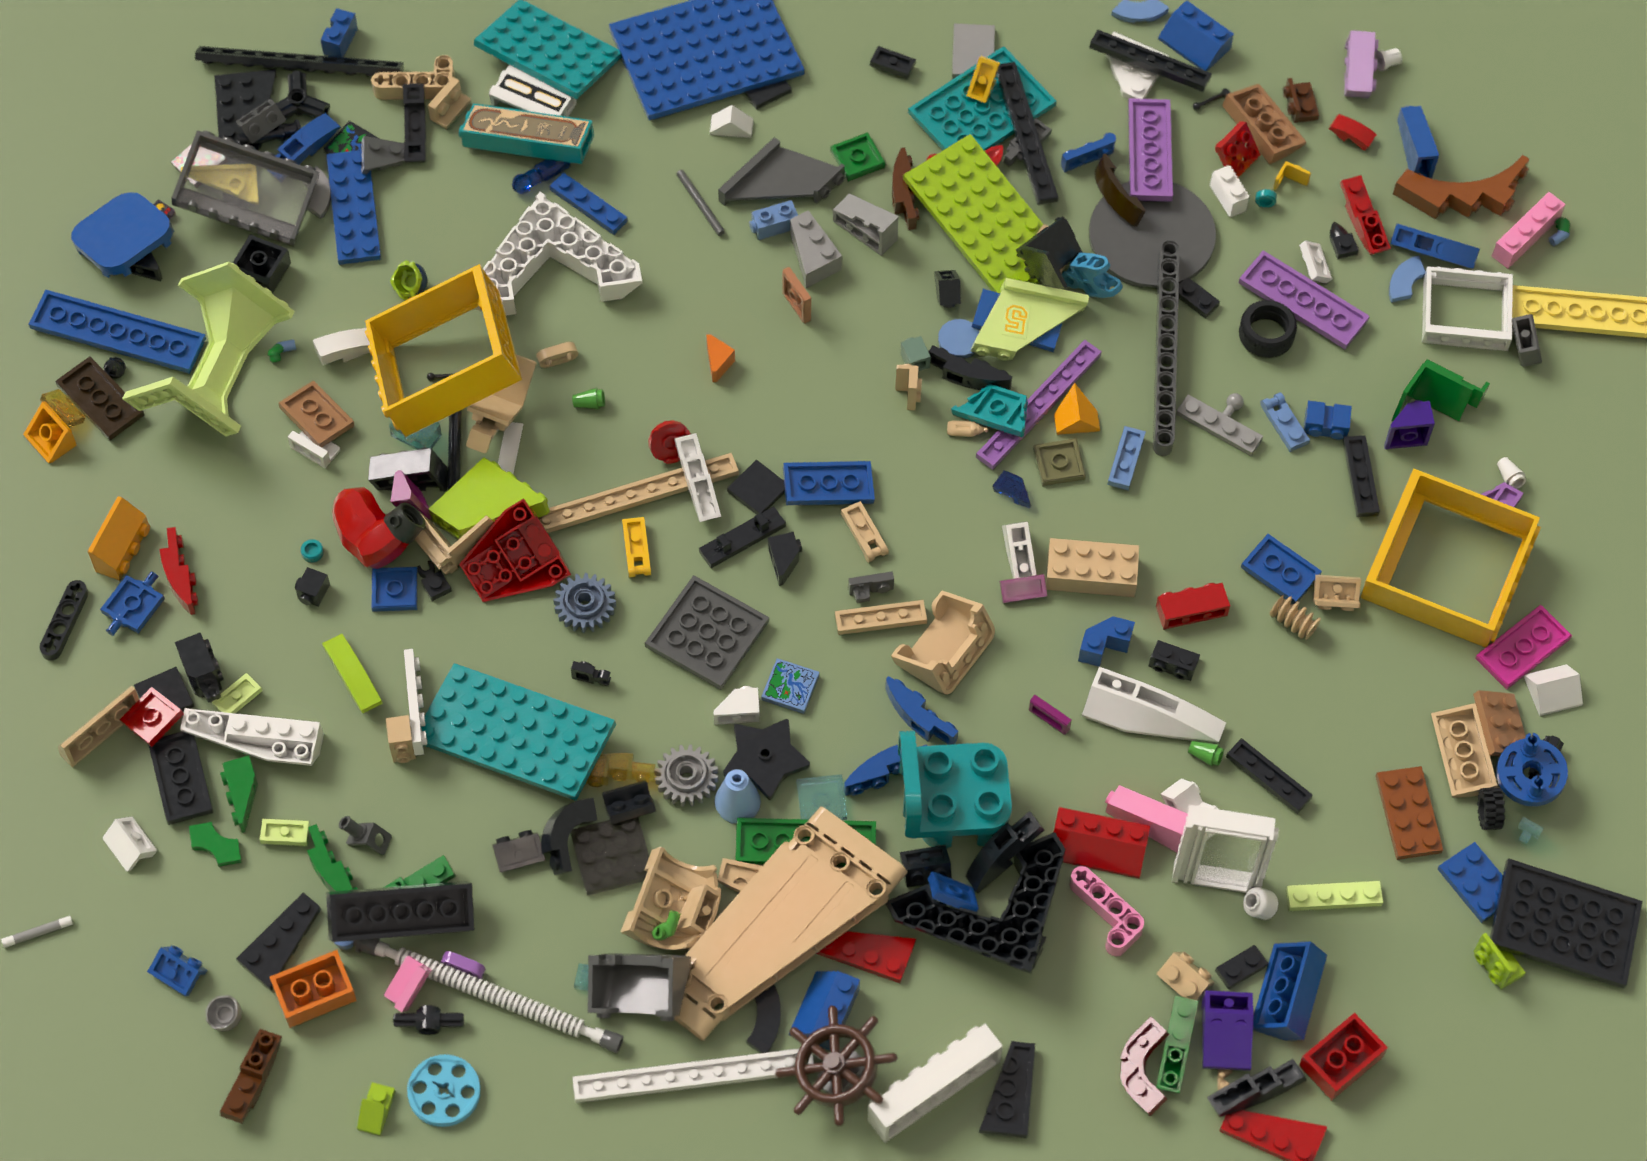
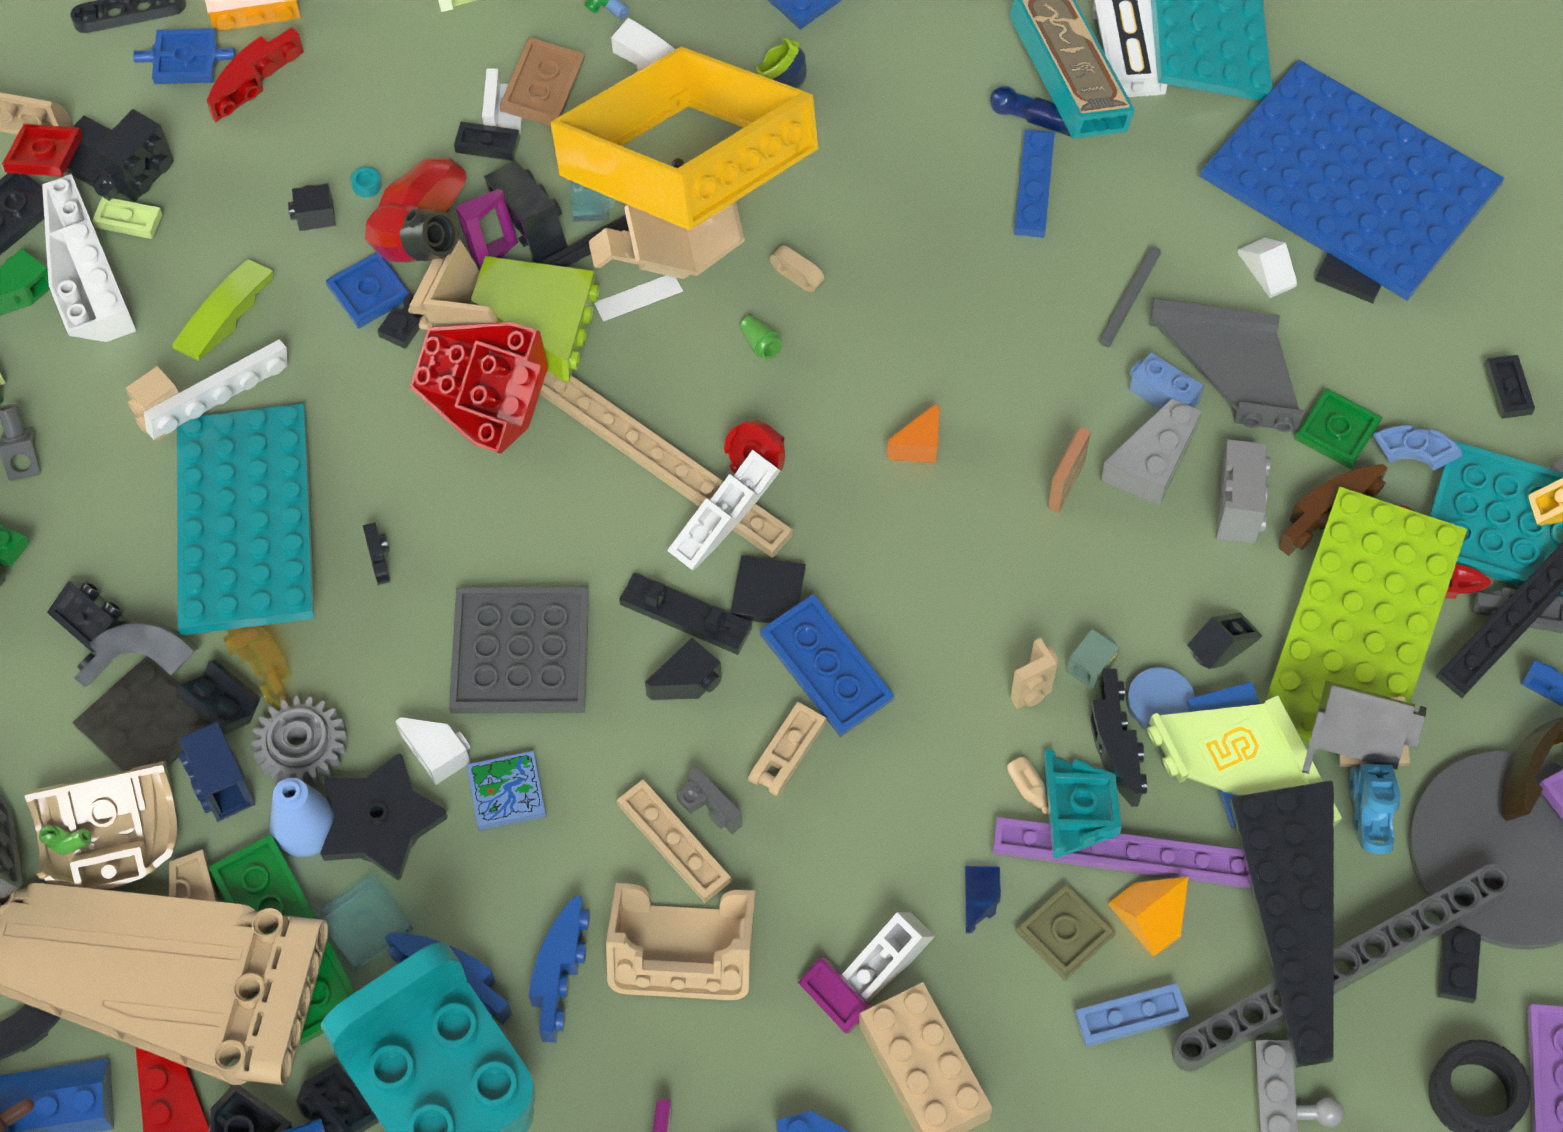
camera: 60 degrees right, 0 degrees up
(336, 468) = (487, 141): none -> black plate
(551, 232) = (945, 156): white wedge -> none
(580, 590) = (450, 488): sand blue gear -> none
(636, 546) = (589, 503): yellow plate -> none
(681, 824) = (214, 772): none -> dark blue piece
(897, 125) = (1418, 444): none -> medium blue tile
(1104, 334) = (1291, 873): none -> black wing

